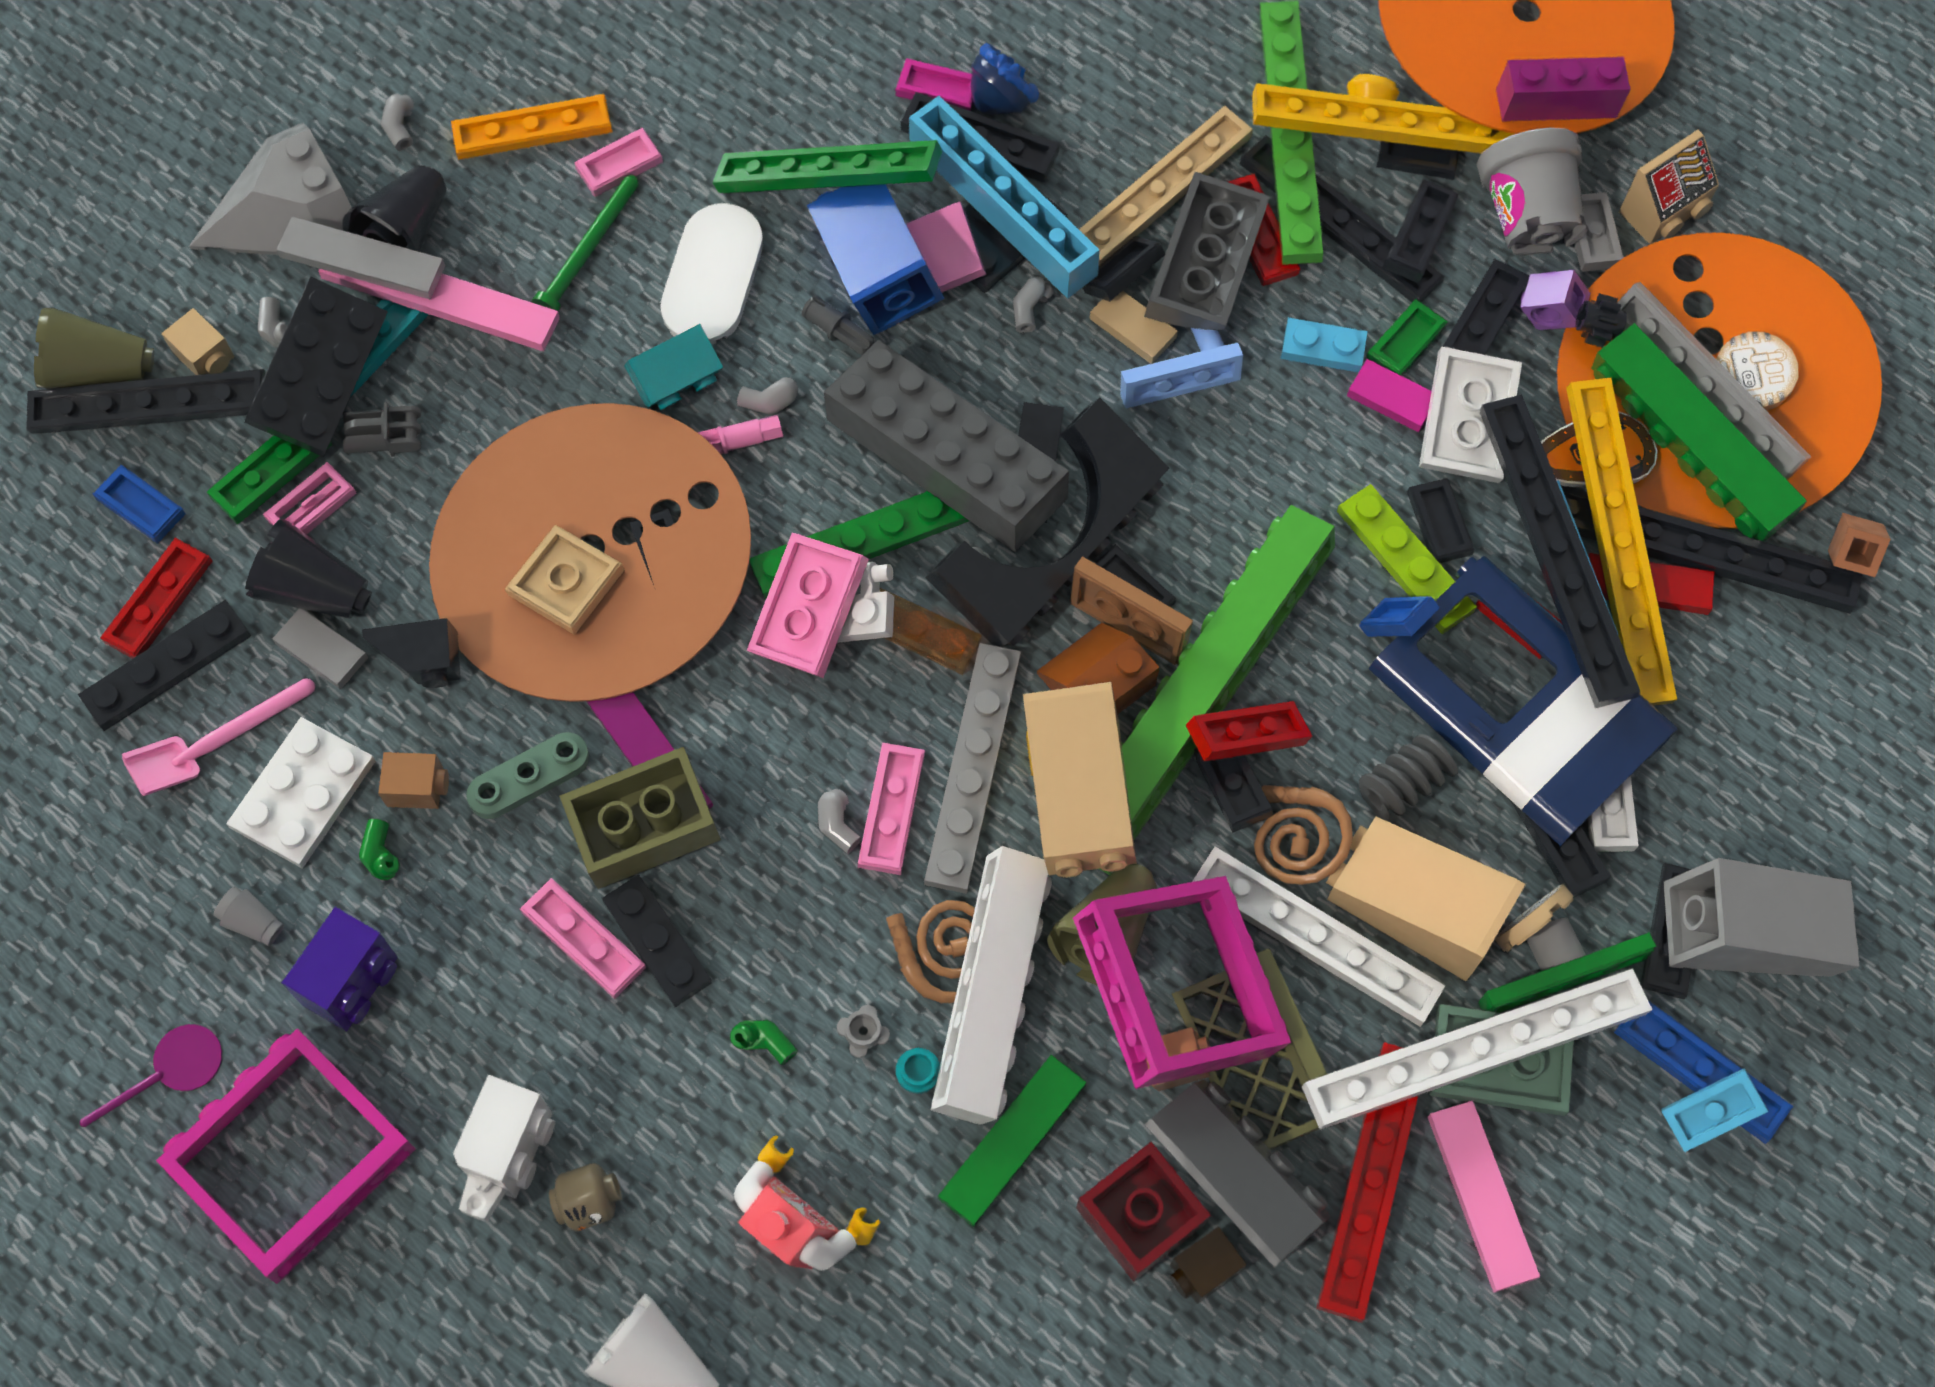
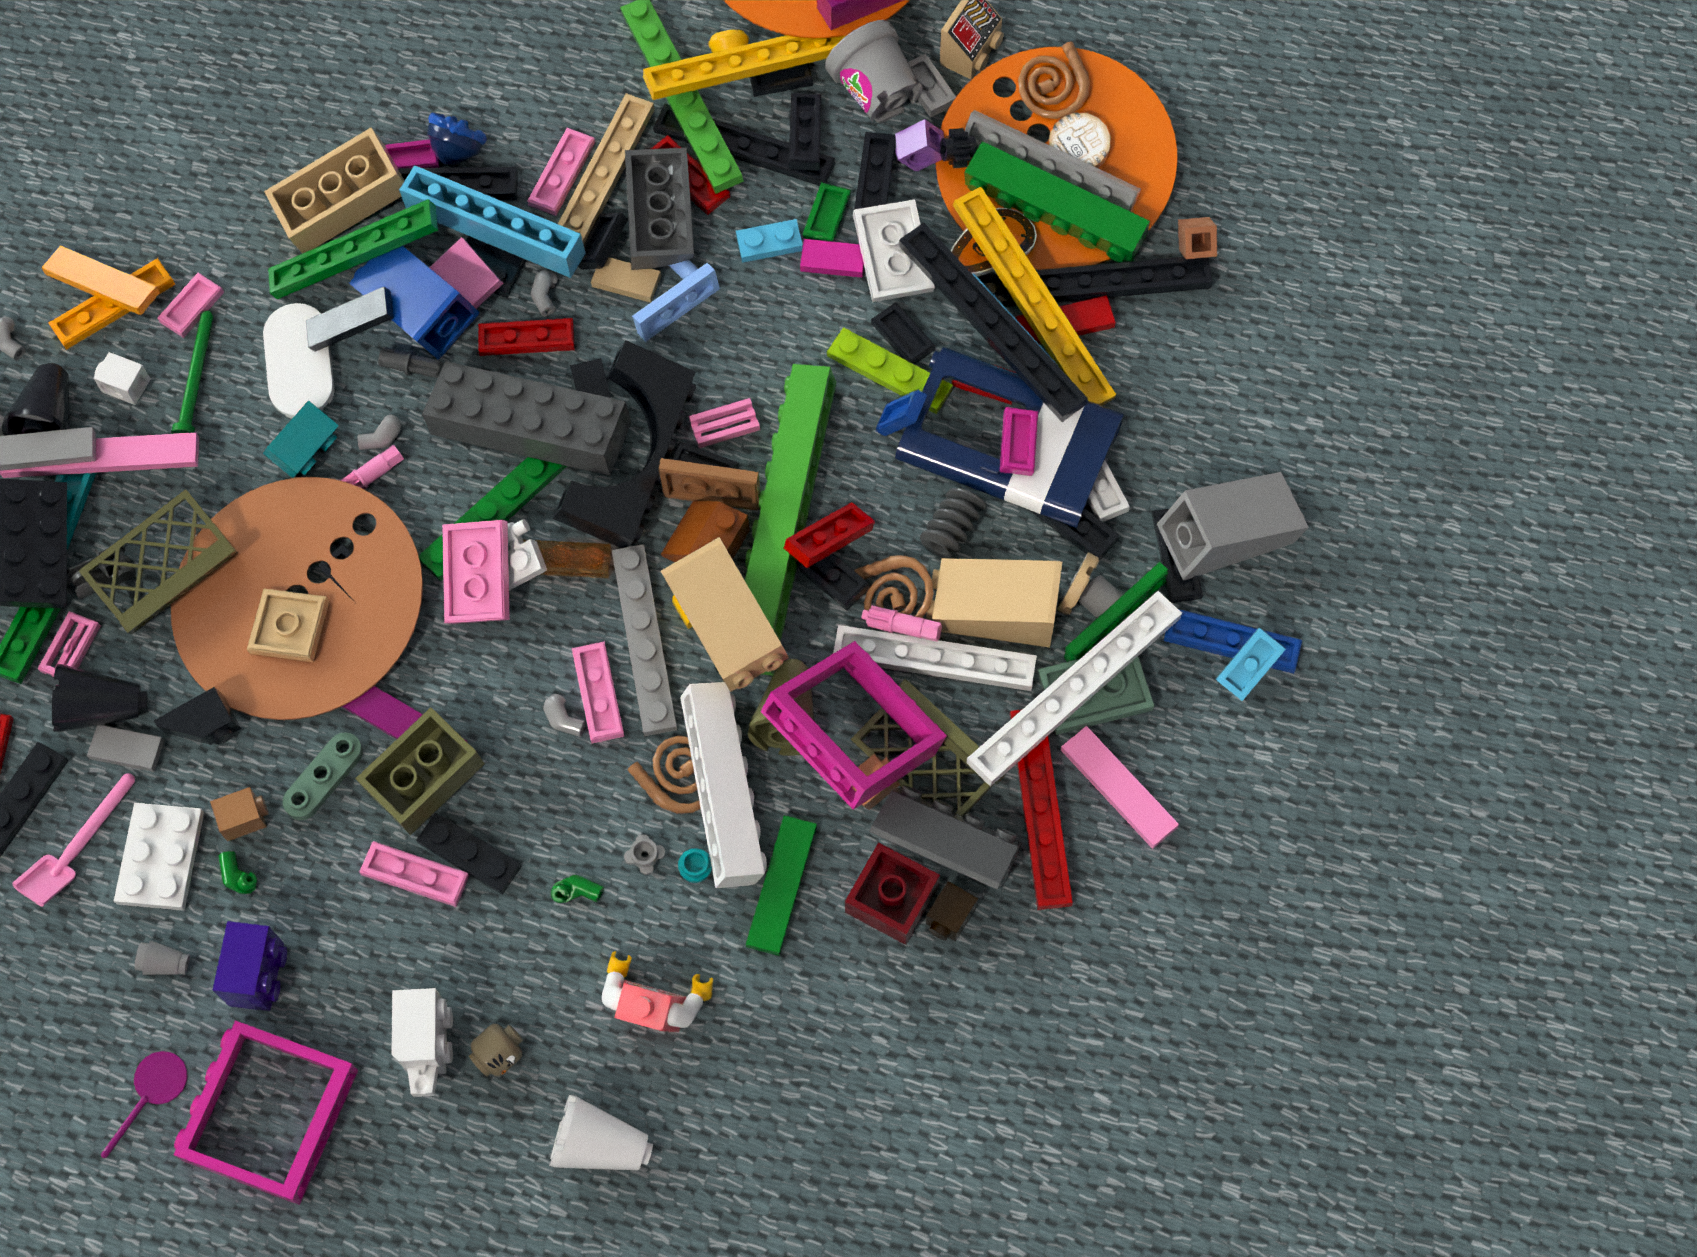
camera: 20 degrees left, 0 degrees up
(459, 480) = (177, 584): none -> olive fence
(503, 216) = (121, 378): none -> white brick
(529, 95) = (100, 280): none -> light orange tile
(788, 247) = (349, 319): none -> tile
(837, 92) = (336, 191): none -> tan brick
(987, 348) = (526, 336): none -> red tile
(1110, 169) = (561, 171): none -> bright pink tile
(1179, 528) = (720, 412): none -> bright pink tile
(1294, 877) = (902, 623): none -> bright pink piece
(1531, 710) = (1018, 441): none -> dark pink tile
(1743, 287) = (1048, 86): none -> medium nougat piece

